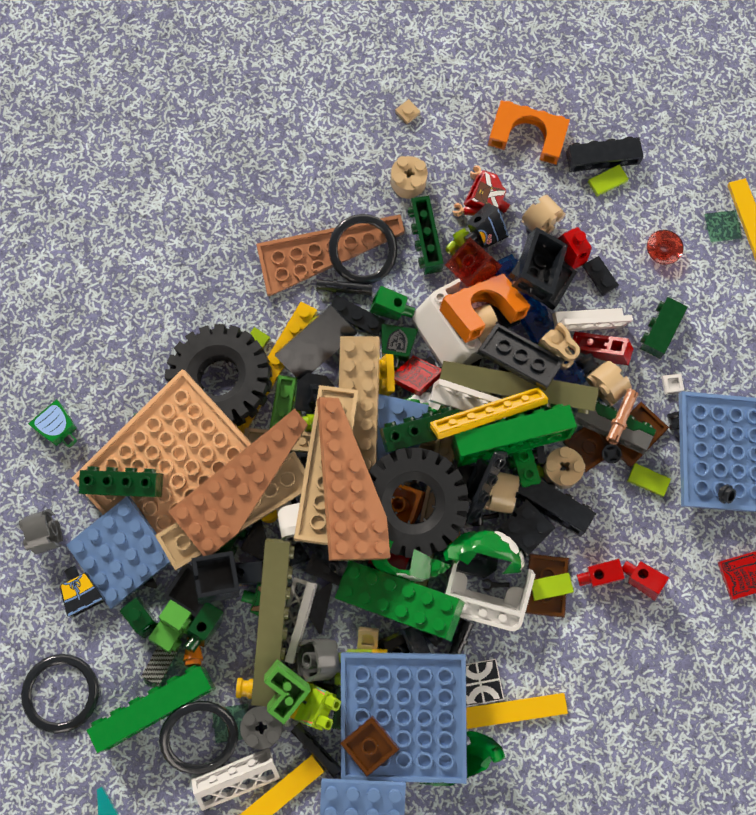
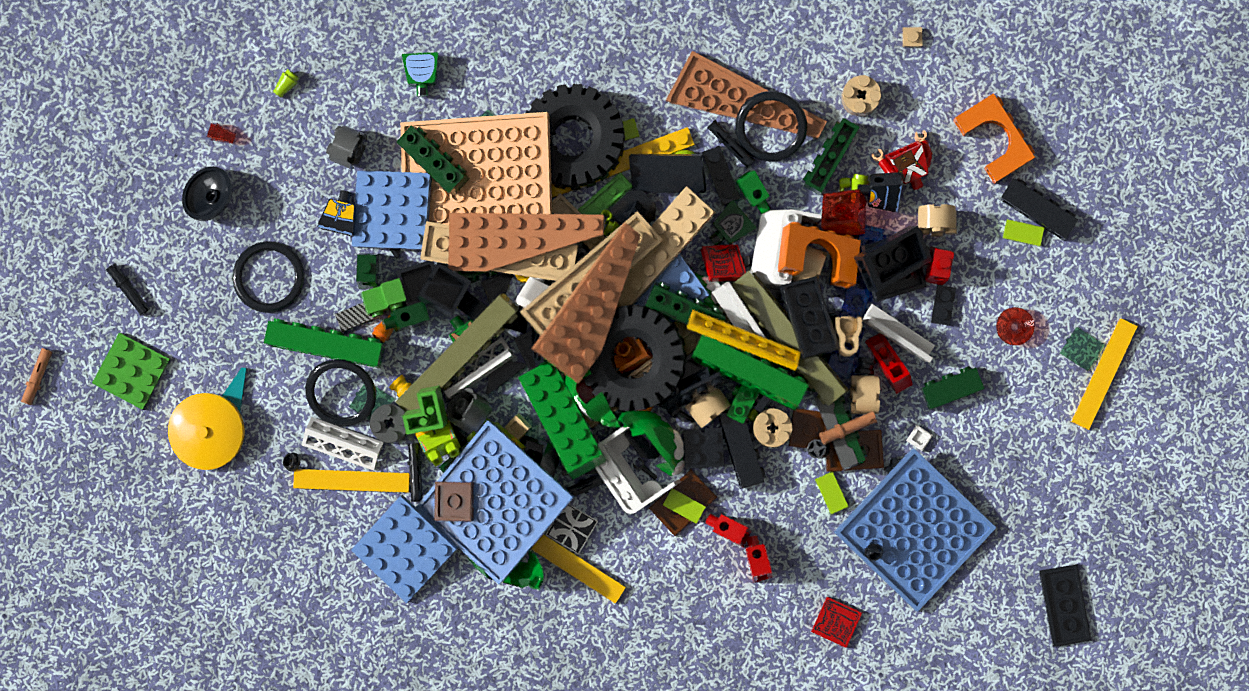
camera: 50 degrees right, 10 degrees up
(386, 375) = (698, 243): yellow plate -> none

